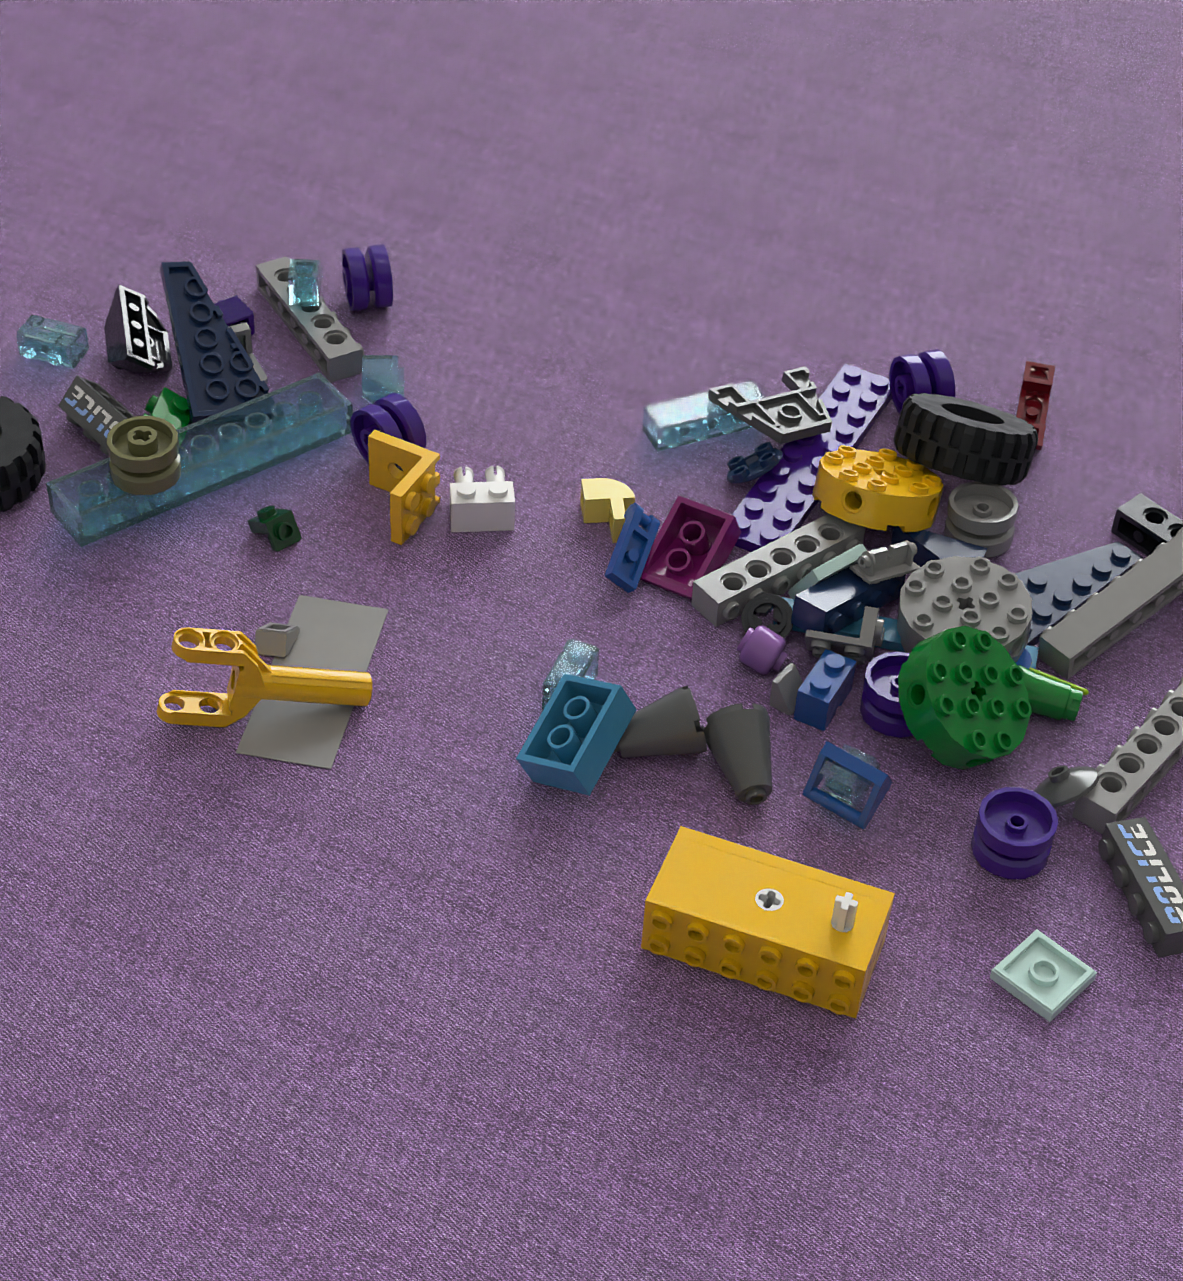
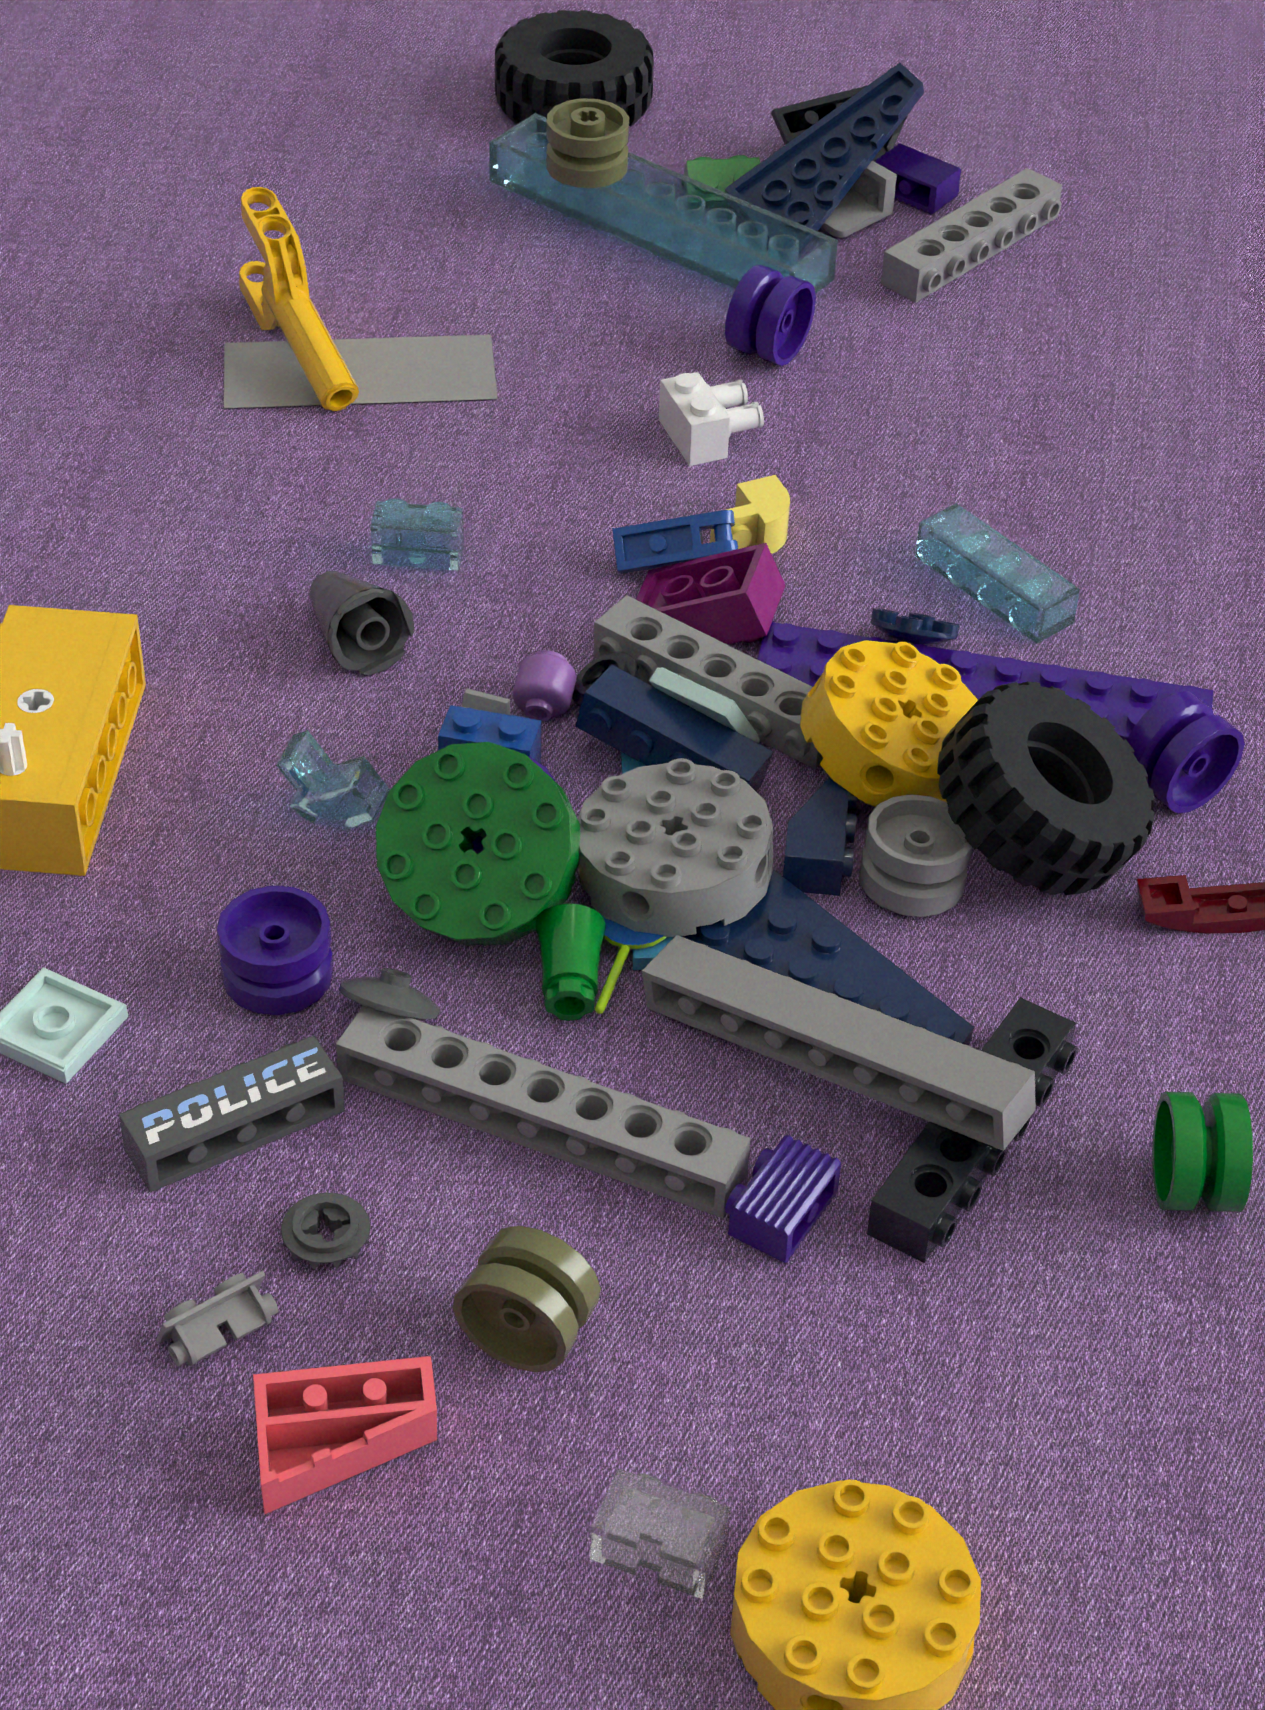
camera: 75 degrees right, 0 degrees up
(52, 341) = (803, 77): clear light blue brick -> none
(93, 409) = (690, 132): dark grey brick -> none
(275, 639) = (405, 327): light grey slope -> none
(278, 525) = (578, 287): dark green bracket -> none
(305, 282) = (996, 189): clear light blue slope -> none
(367, 277) = (1060, 245): dark purple wheel -> none
(381, 376) = (887, 309): clear light blue slope -> none
(411, 489) = (685, 344): yellow bracket -> none
(576, 734) = (294, 536): dark azure brick -> none
(742, 749) = (335, 687): dark grey cone -> none
(779, 416) = (1026, 632): dark grey wing -> none
(857, 649) = (579, 744): light grey bracket -> none
(867, 773) = (309, 777): blue tile -> none
(884, 564) = (724, 748): light grey hinge -> none

